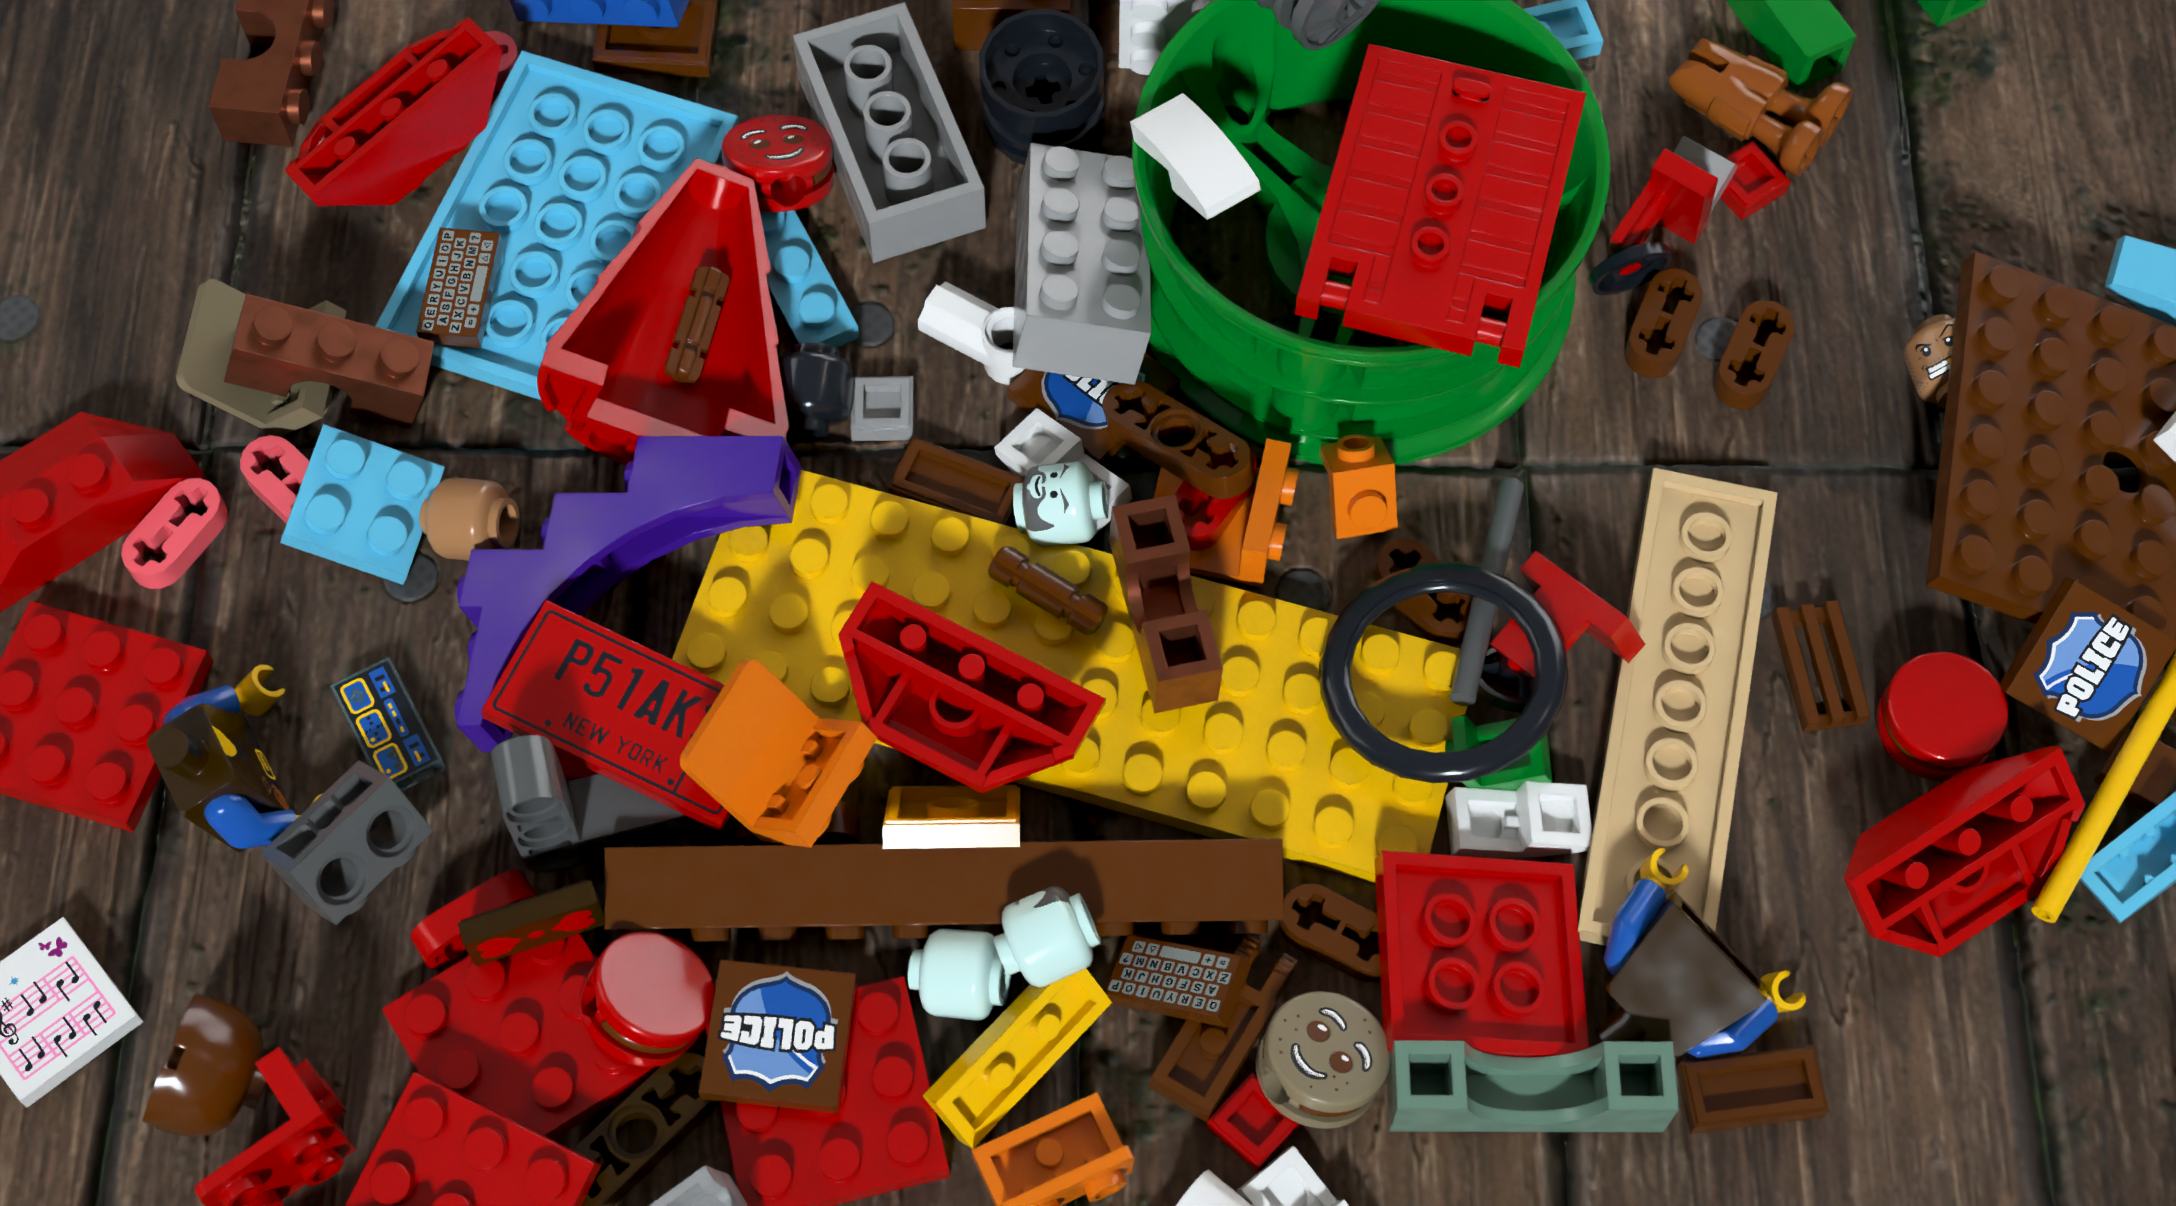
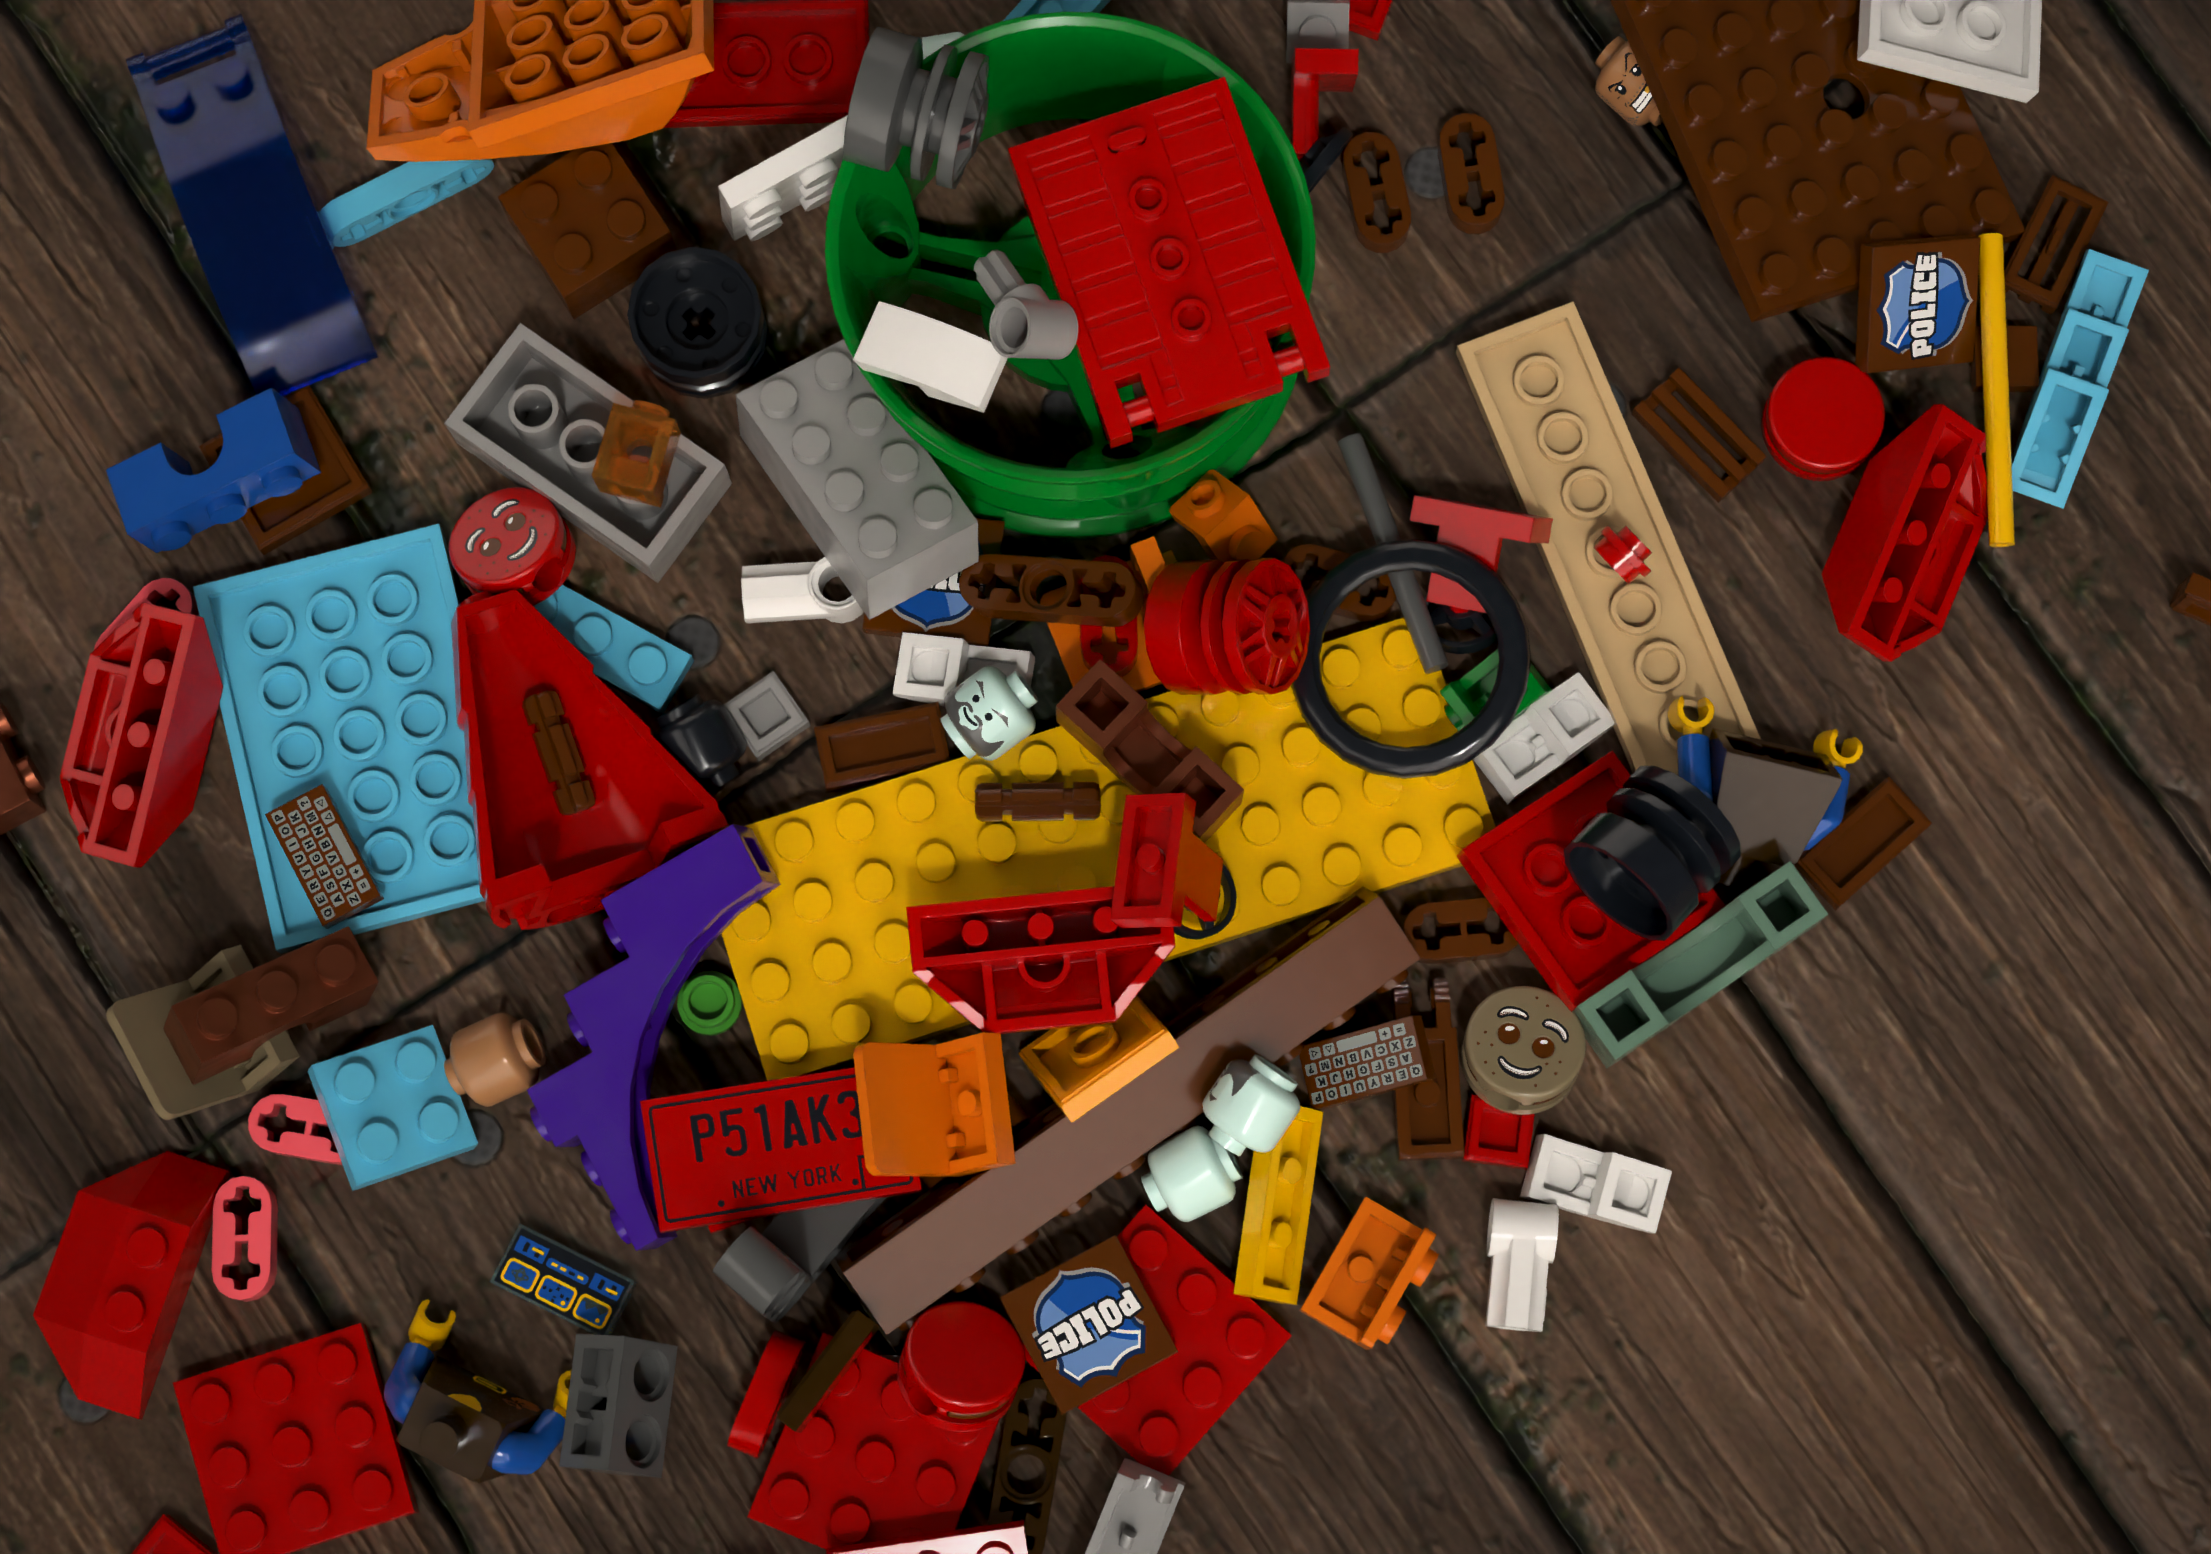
camera: 30 degrees left, 15 degrees up
(669, 588) = (709, 1003): none -> bright green plate
(918, 129) = (626, 429): none -> clear orange brick
(1113, 681) = (1168, 869): none -> red piece
(1292, 167) = (1023, 316): none -> light grey axle
(1302, 545) = (1227, 626): none -> red wheel
(1550, 949) = (1652, 852): none -> black wheel
(1690, 703) = (1624, 553): none -> red plate

